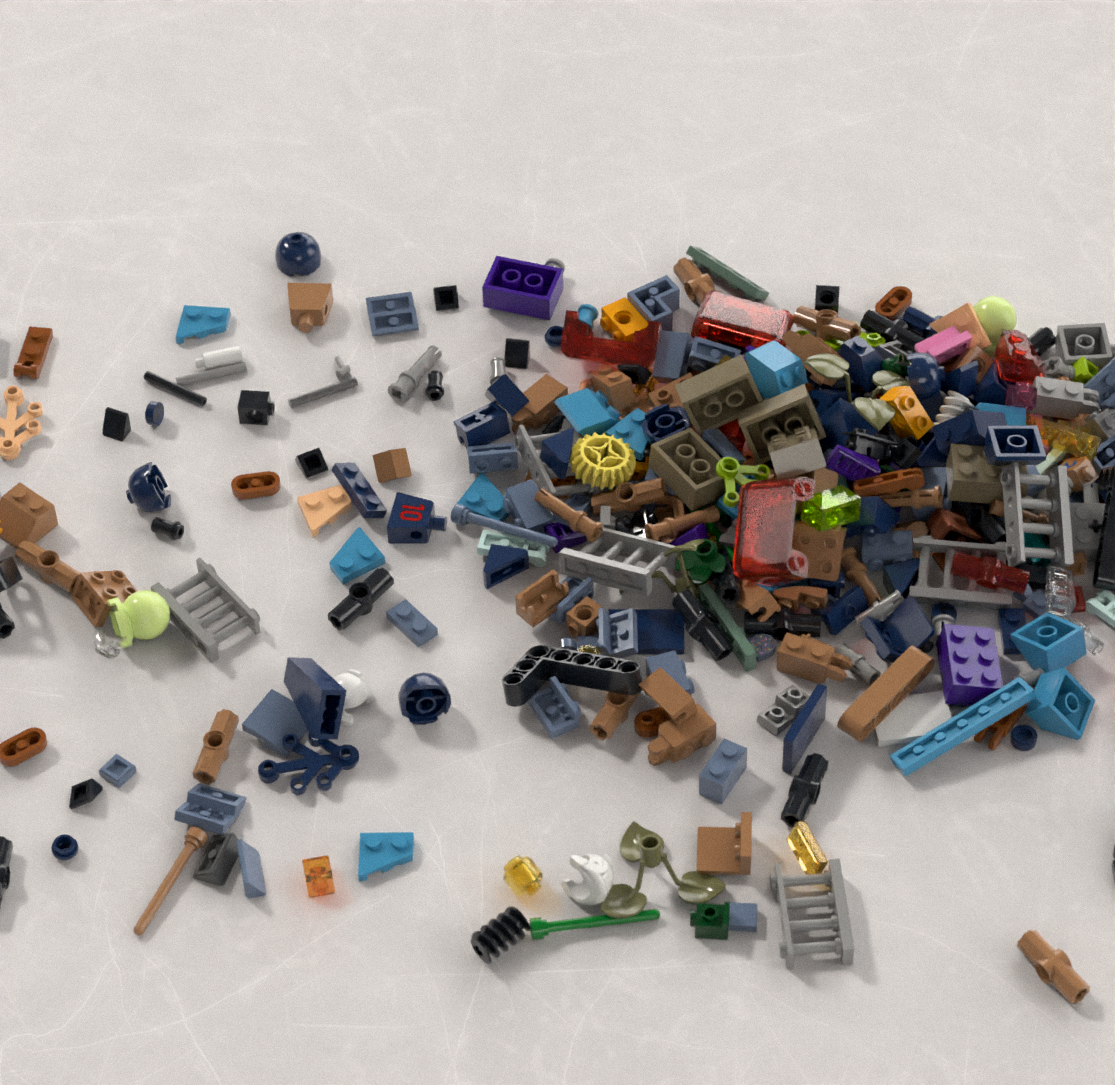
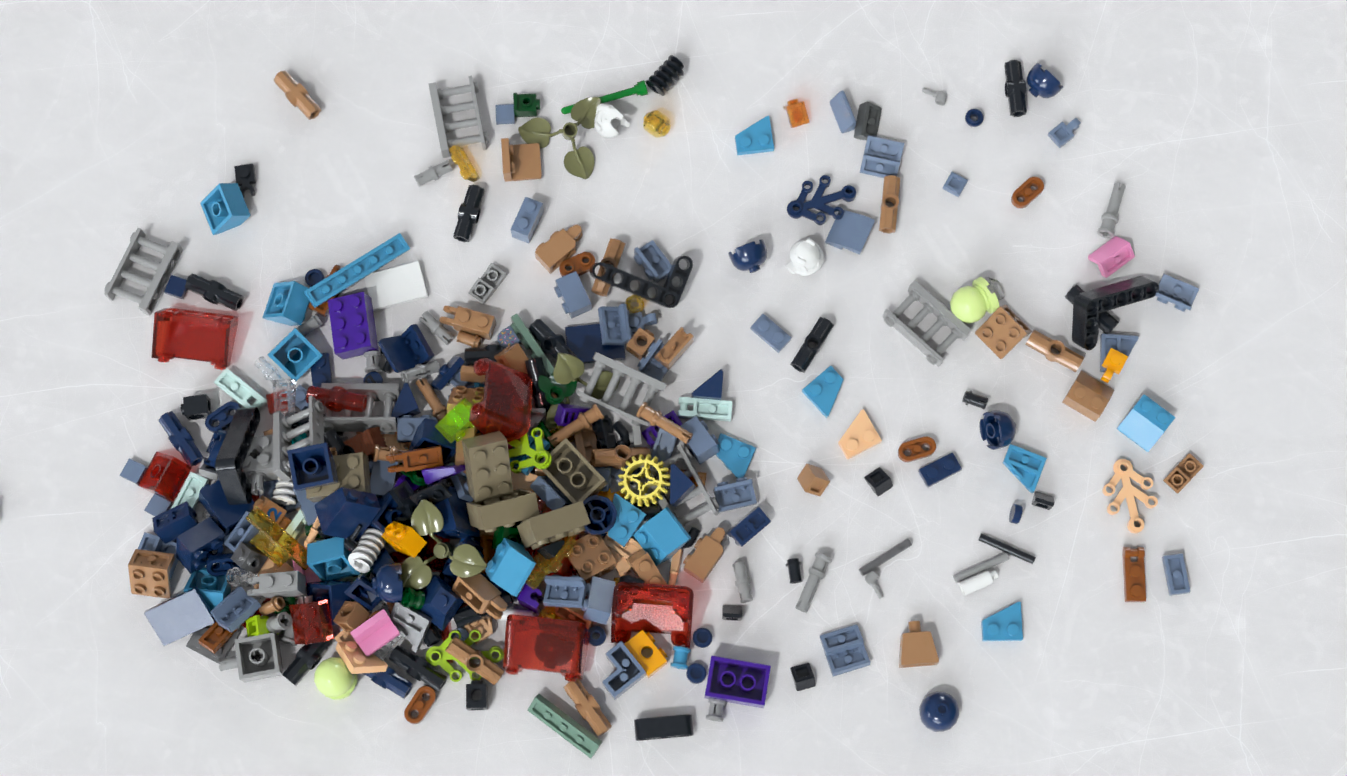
camera: 170 degrees right, 25 degrees up
(84, 793) = (972, 162): black slope -> none
(105, 880) = (940, 96): none -> light grey hand
(124, 456) = (1024, 466): none -> dark azure wing
(194, 840) = (886, 130): medium nougat piece -> none
(229, 467) = (940, 470): none -> dark blue plate
(255, 407) = (935, 528): black brick -> none
(316, 696) = (828, 244): dark blue slope -> none
(359, 490) = (834, 452): dark blue plate -> none
(413, 520) = (786, 425): dark blue torso -> none
(462, 515) = (748, 435): sand blue piece -> none
(506, 395) = (733, 549): dark blue slope -> none
(567, 304) = (696, 673): none -> dark blue tile
(614, 263) = (663, 727): none -> black beam
(669, 695) = (570, 261): medium nougat hinge -> none
(804, 728) = (470, 254): dark blue tile -> none
(854, 847) = (433, 173): none -> light grey pin
(886, 693) = (413, 293): medium nougat beam -> none
(1021, 396) = (310, 574): clear pink brick -> none

